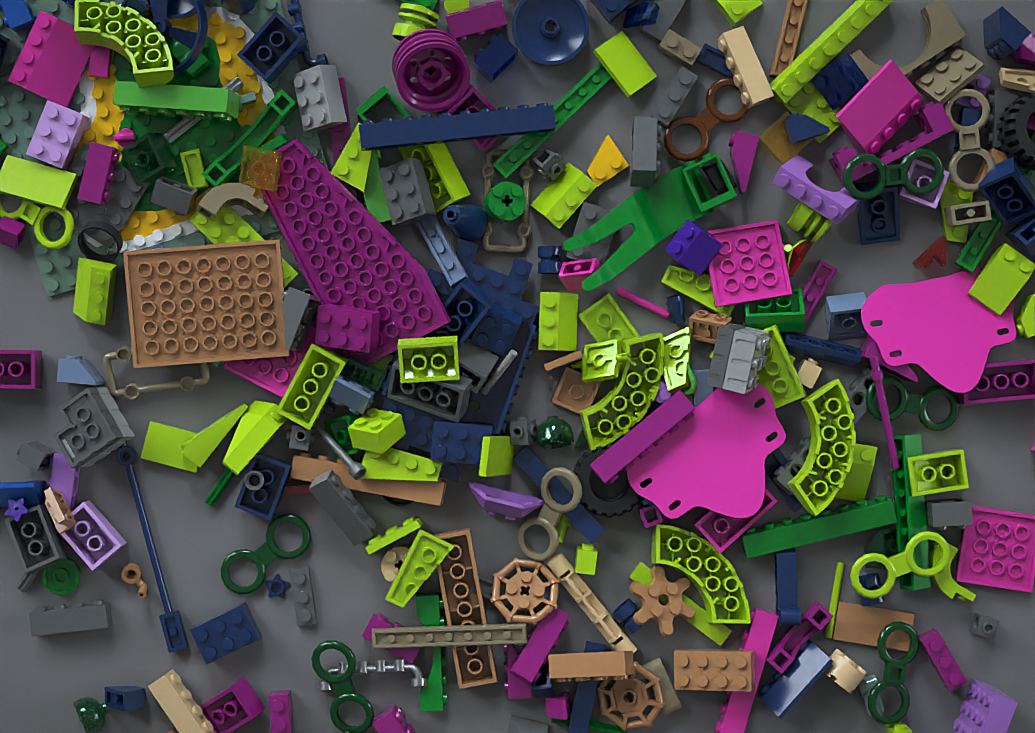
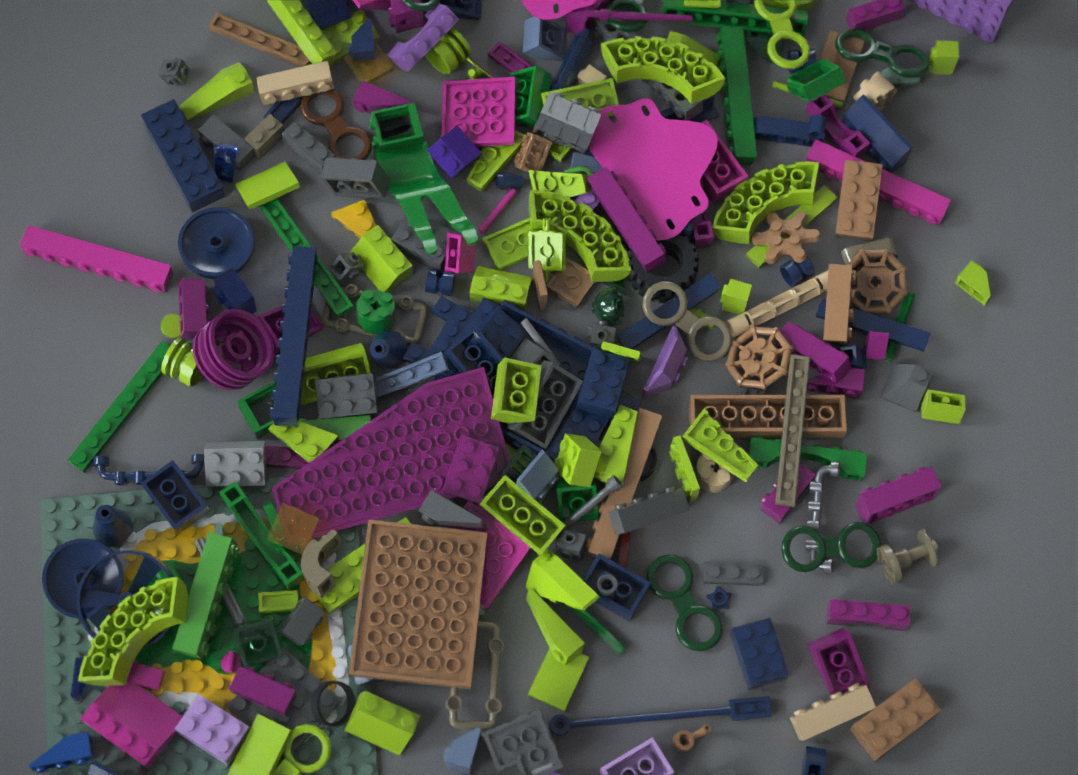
camera: 85 degrees left, 20 degrees down
(853, 602) = (815, 80): none -> green window

